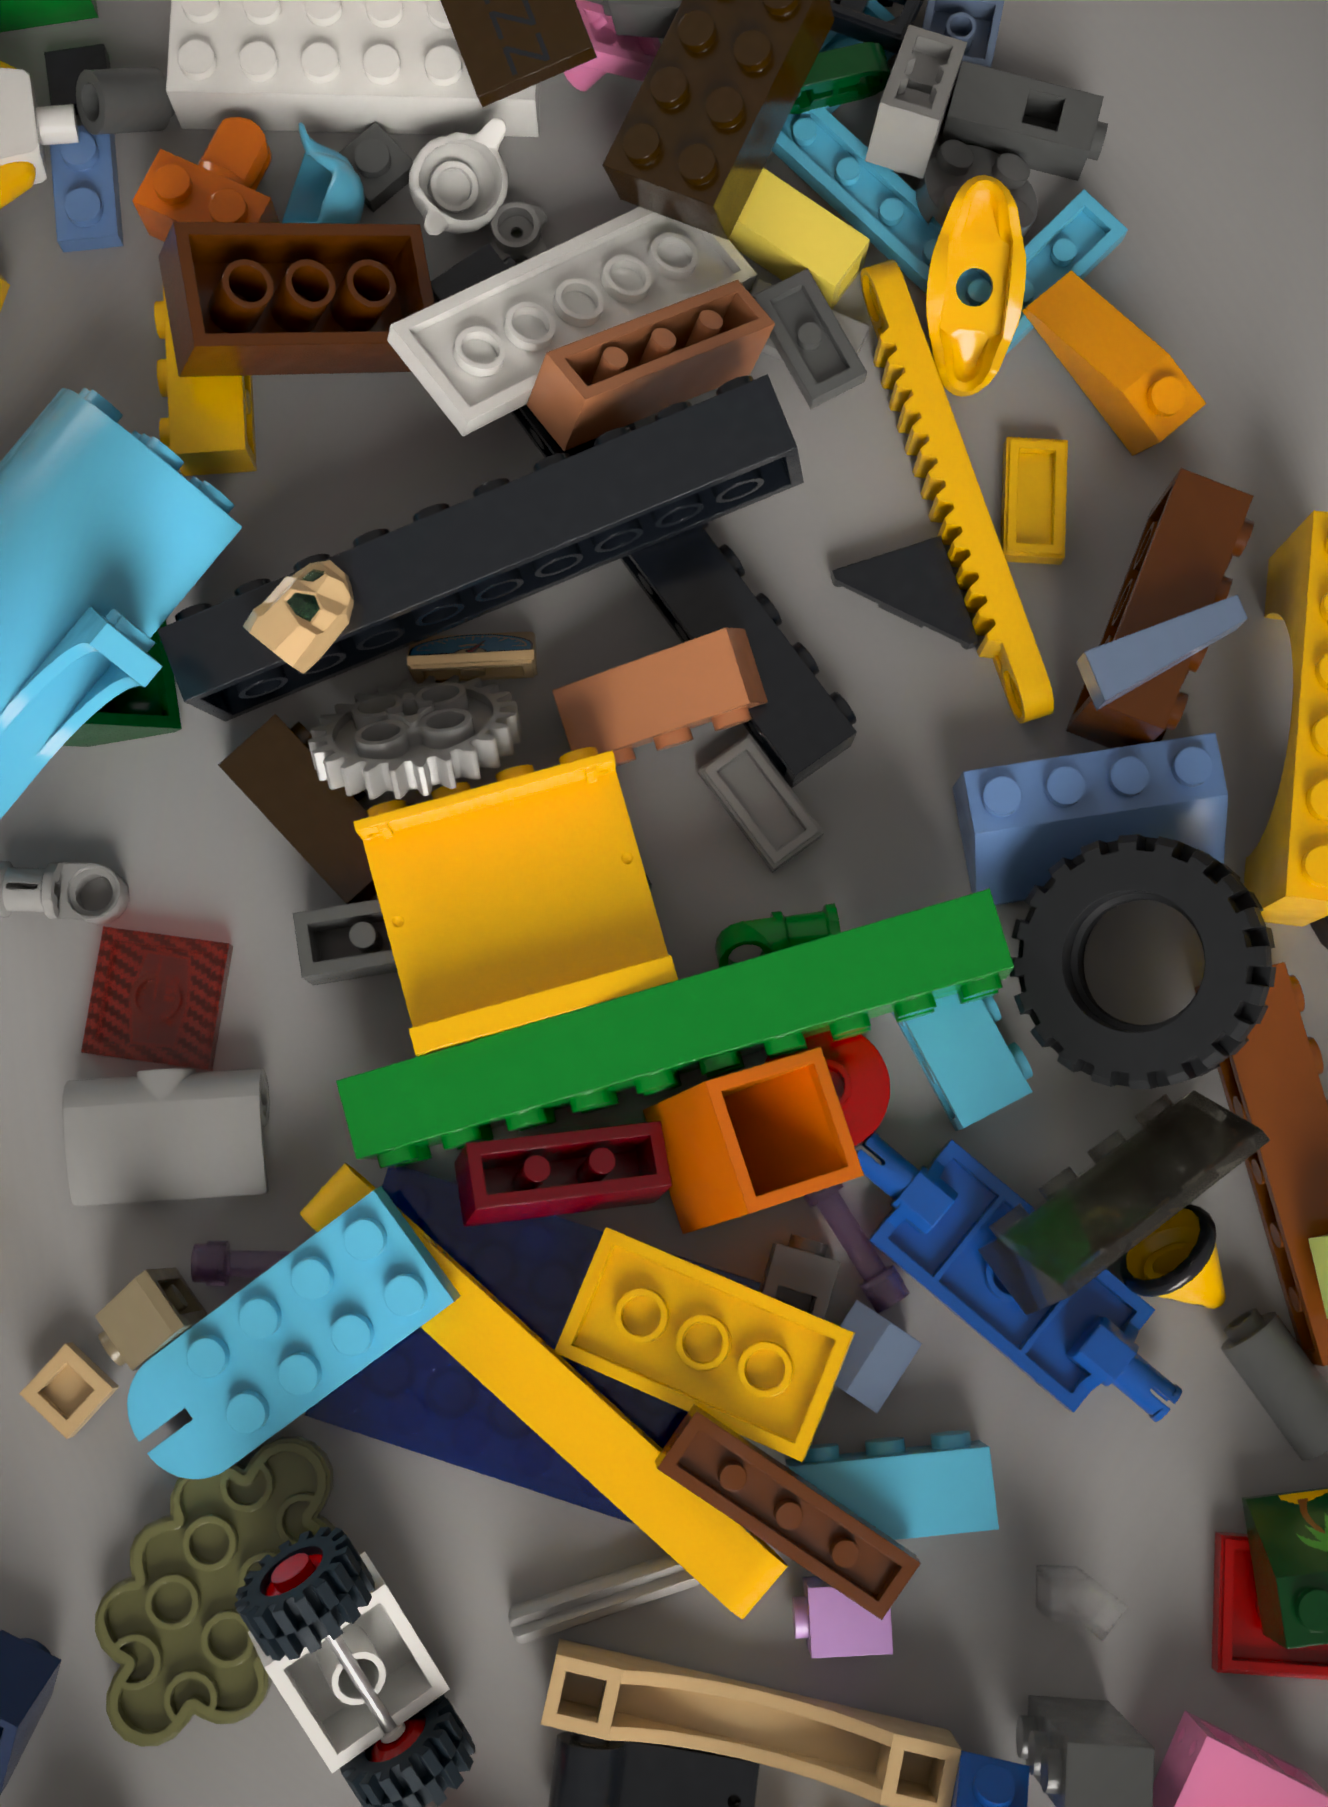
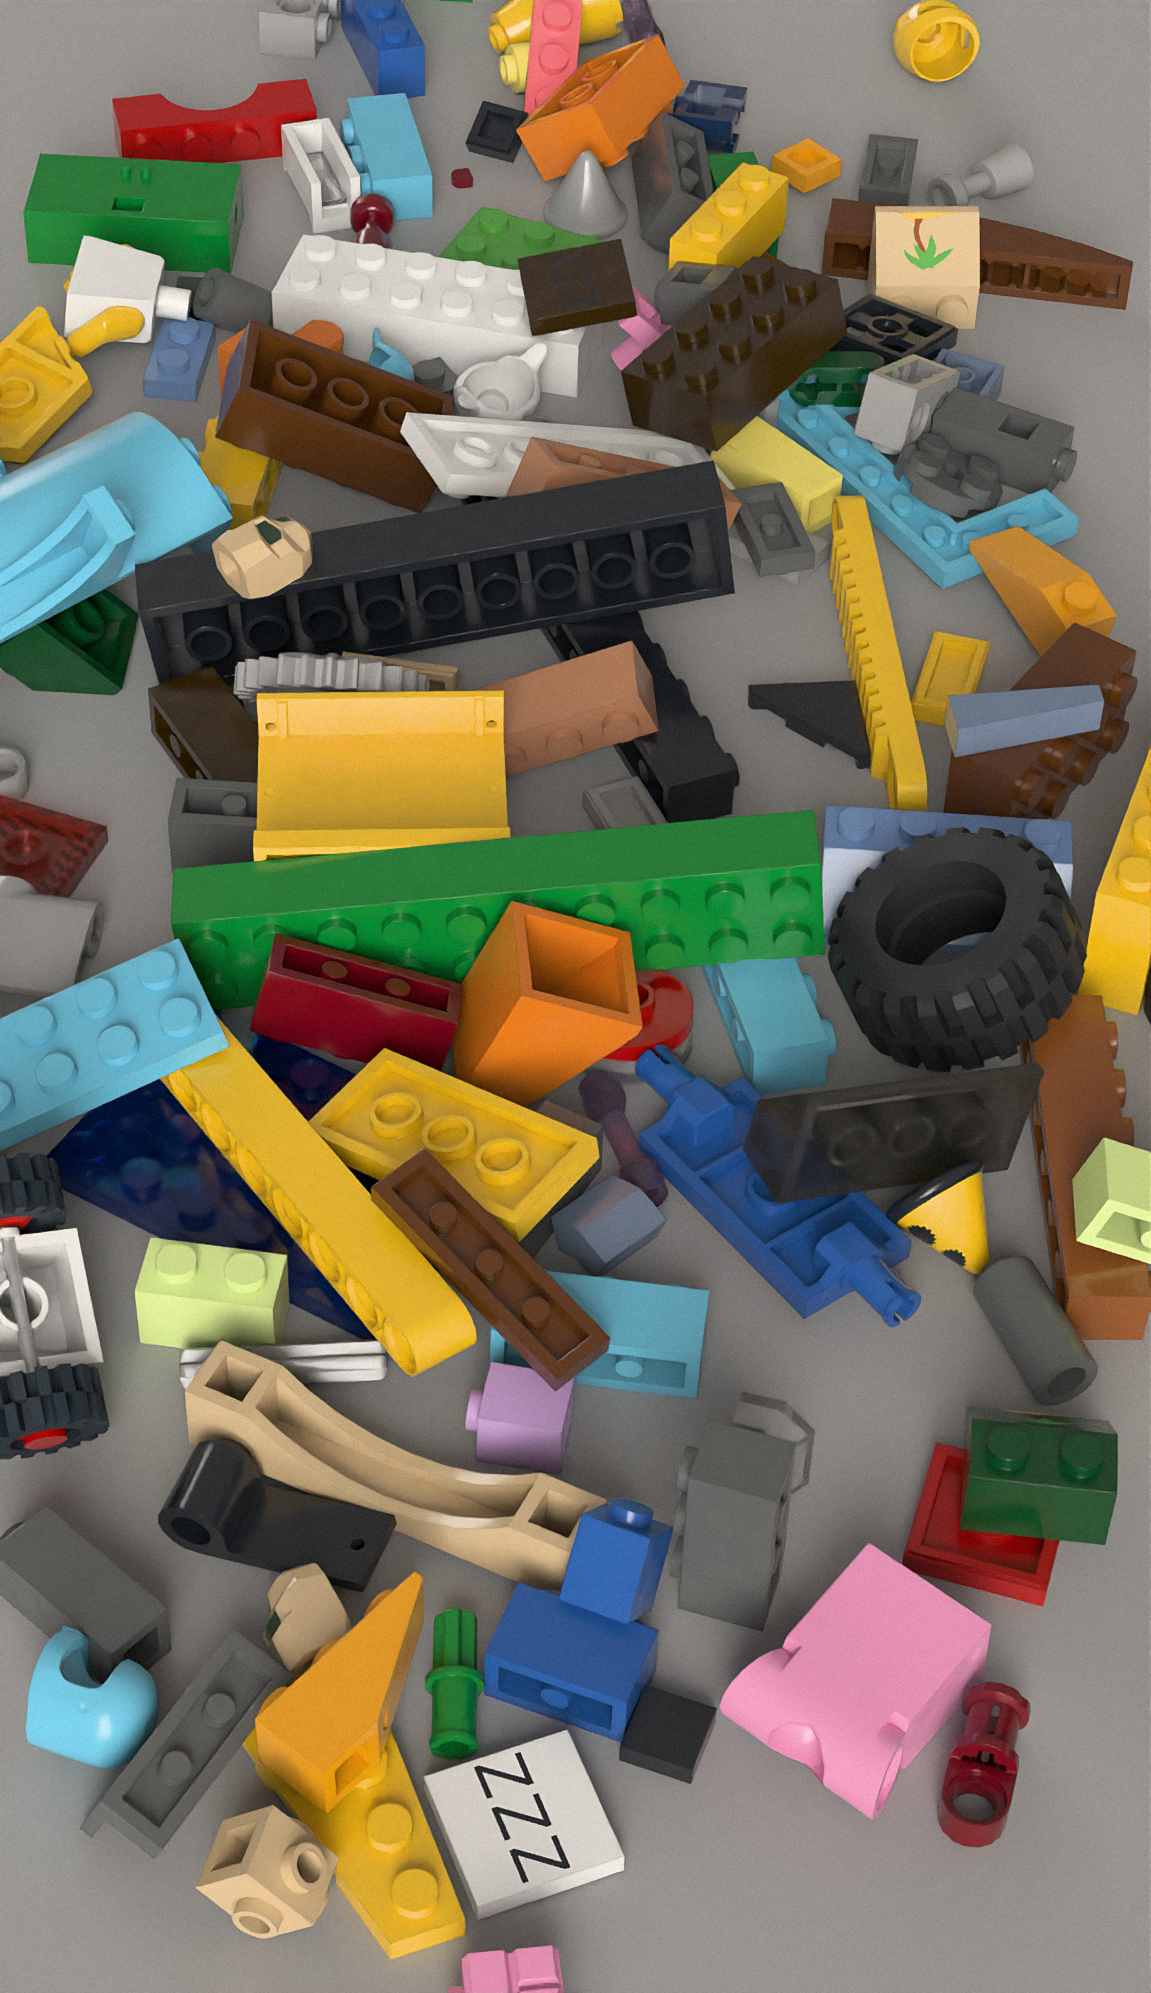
camera: 15 degrees right, 35 degrees down
(521, 1556) = (210, 1294): none -> yellowish green brick
(985, 235) = (933, 475): yellow piece -> none

